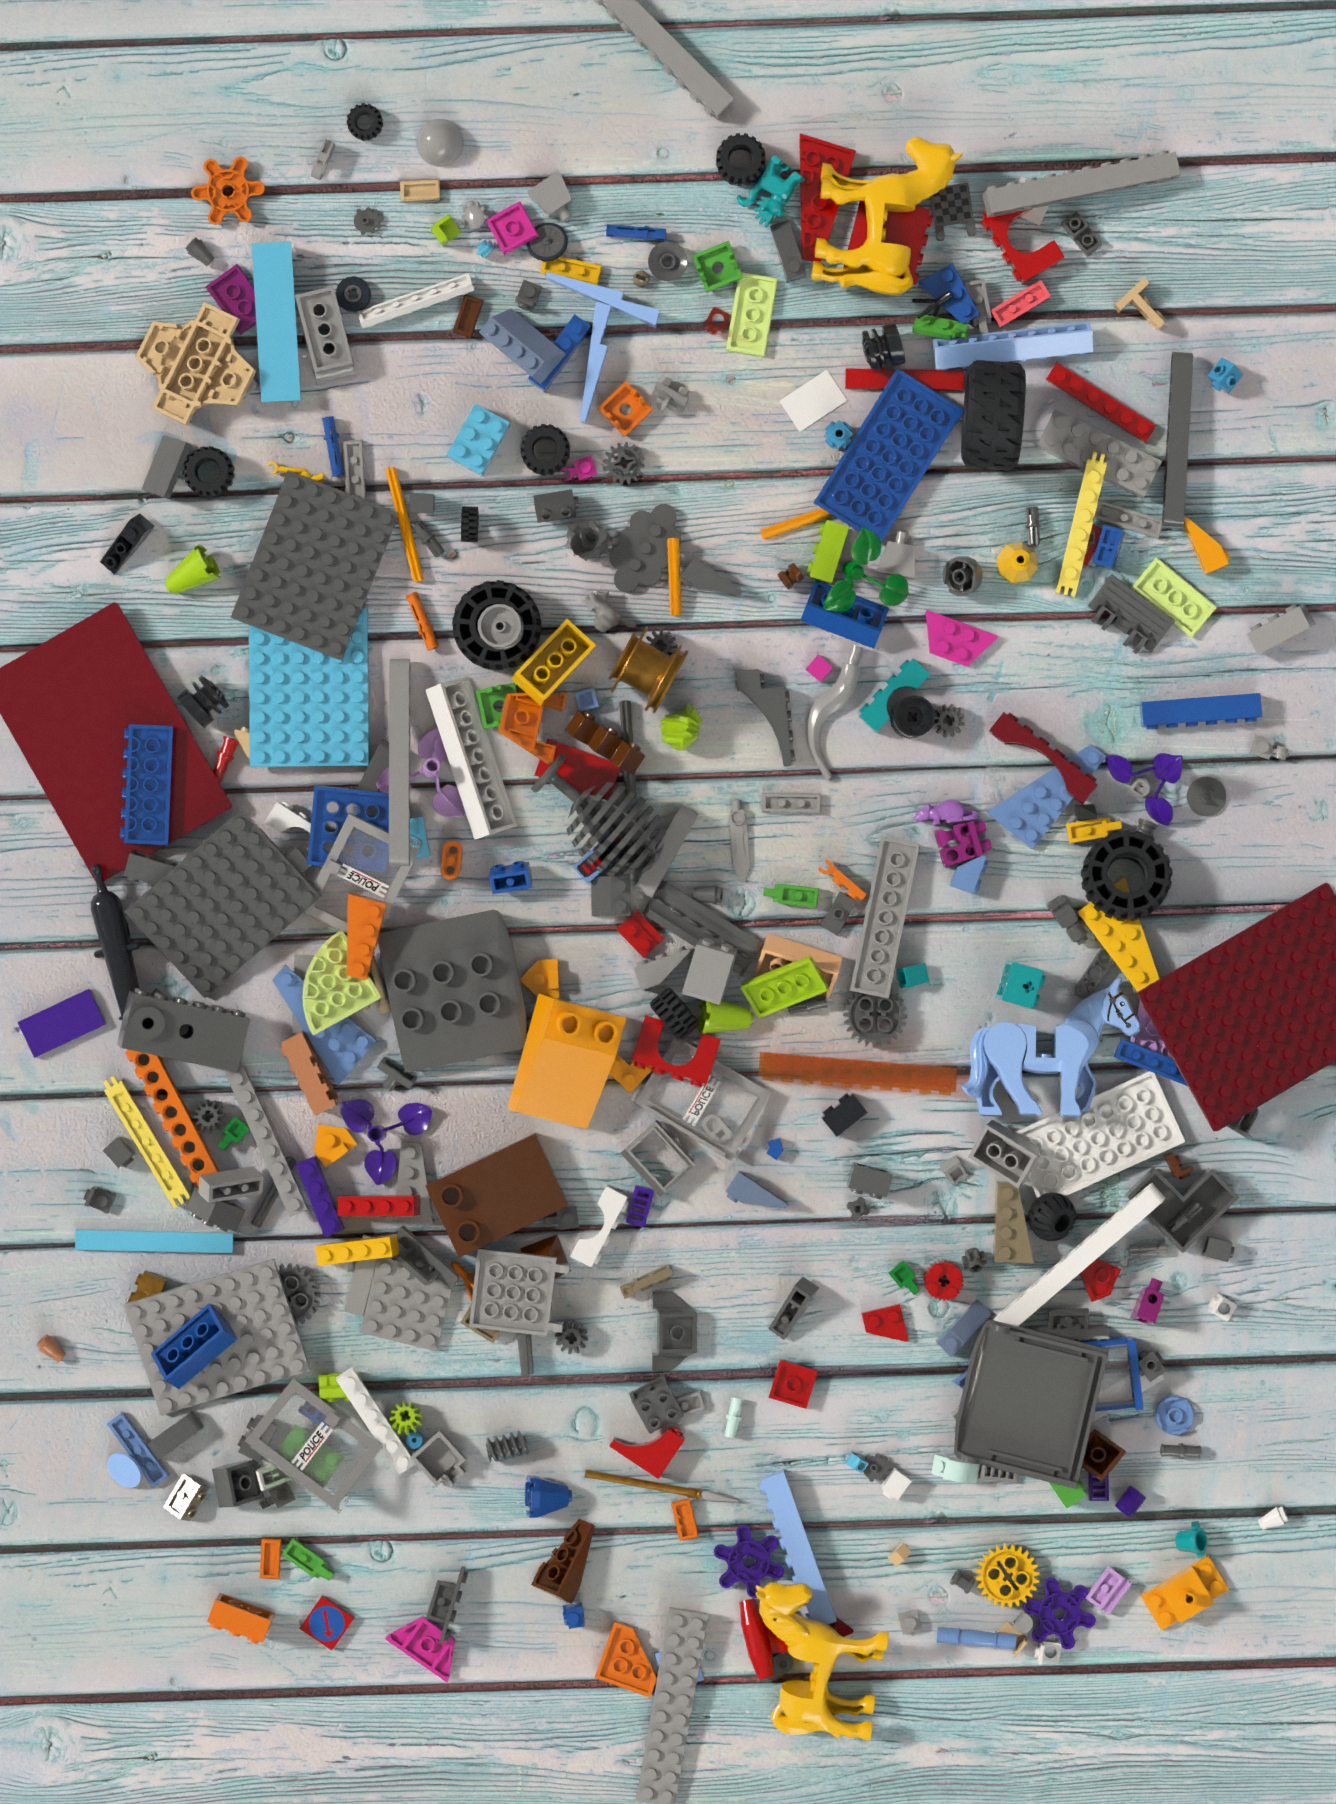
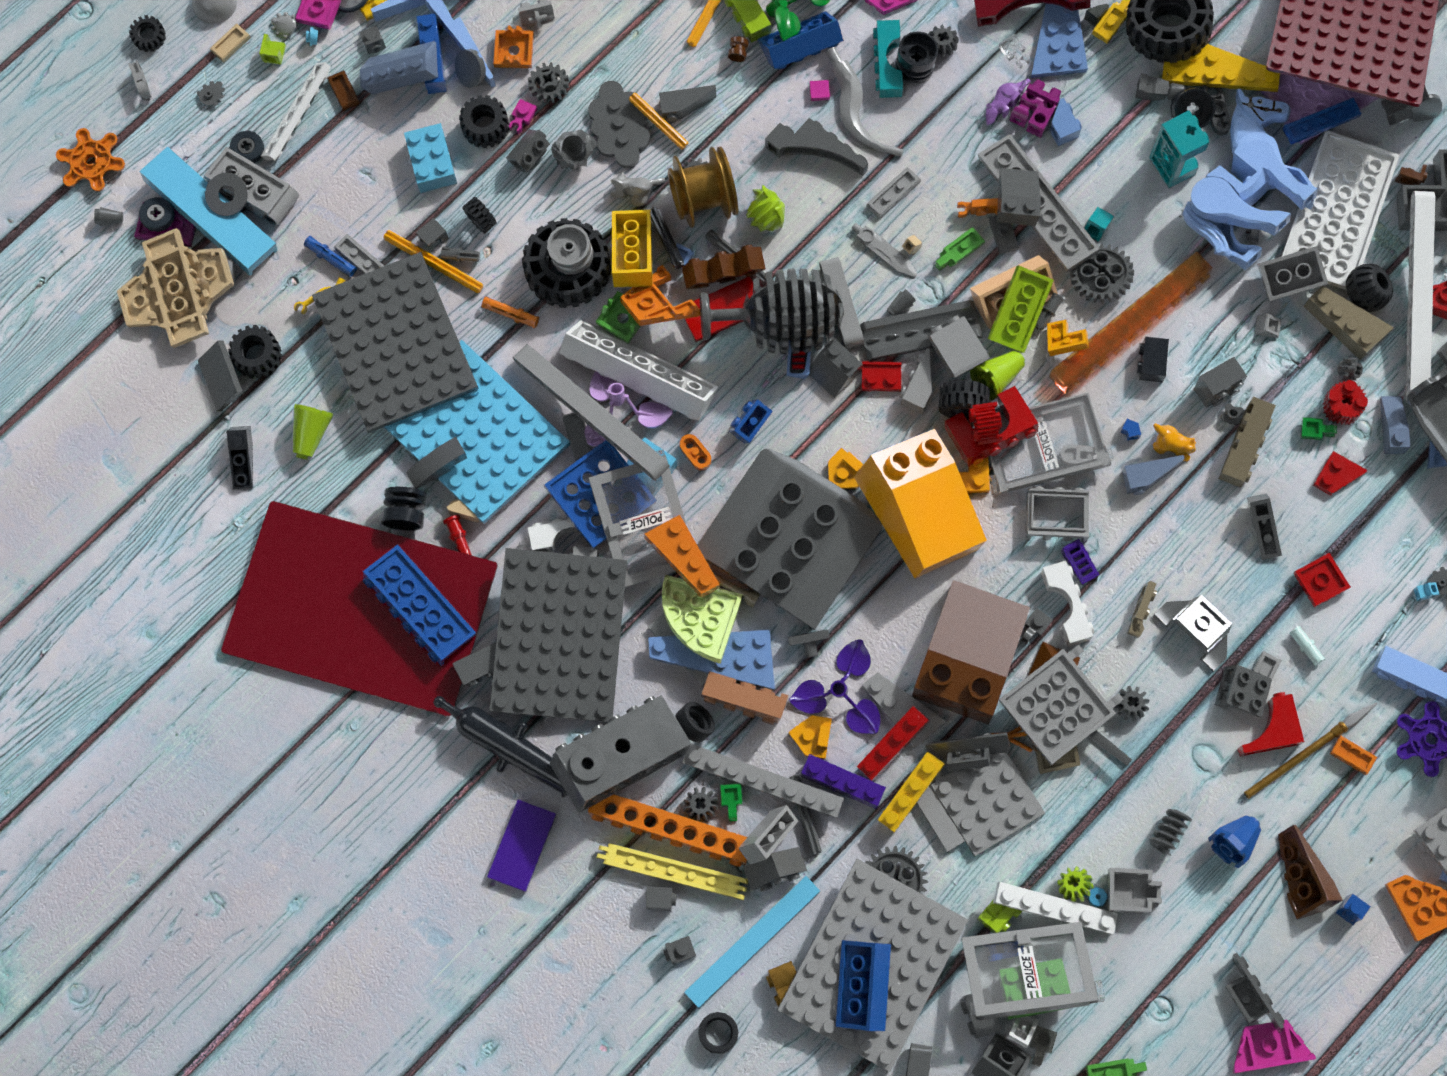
camera: 40 degrees left, 15 degrees down
(69, 1293) = (702, 1032): none -> black tyre
(246, 286) = (163, 220): none -> black bush
(255, 692) = (436, 463): none -> dark grey slope
(268, 1060) = (701, 716): none -> black tyre
(312, 327) = (212, 196): none -> dark grey gear
(574, 395) = (470, 68): none -> dark grey tile
(588, 676) = (666, 238): none -> black axle
(665, 1050) = (986, 423): none -> red brick
(761, 857) = (915, 242): none -> tan piece
(790, 1038) = (1062, 341): none -> light orange plate
(794, 1184) = (1170, 440): none -> light orange animal
(842, 1239) = (1246, 442): none -> dark tan wedge
(872, 900) = (1018, 197): none -> dark grey slope
(1064, 968) = (1200, 98): none -> black wheel

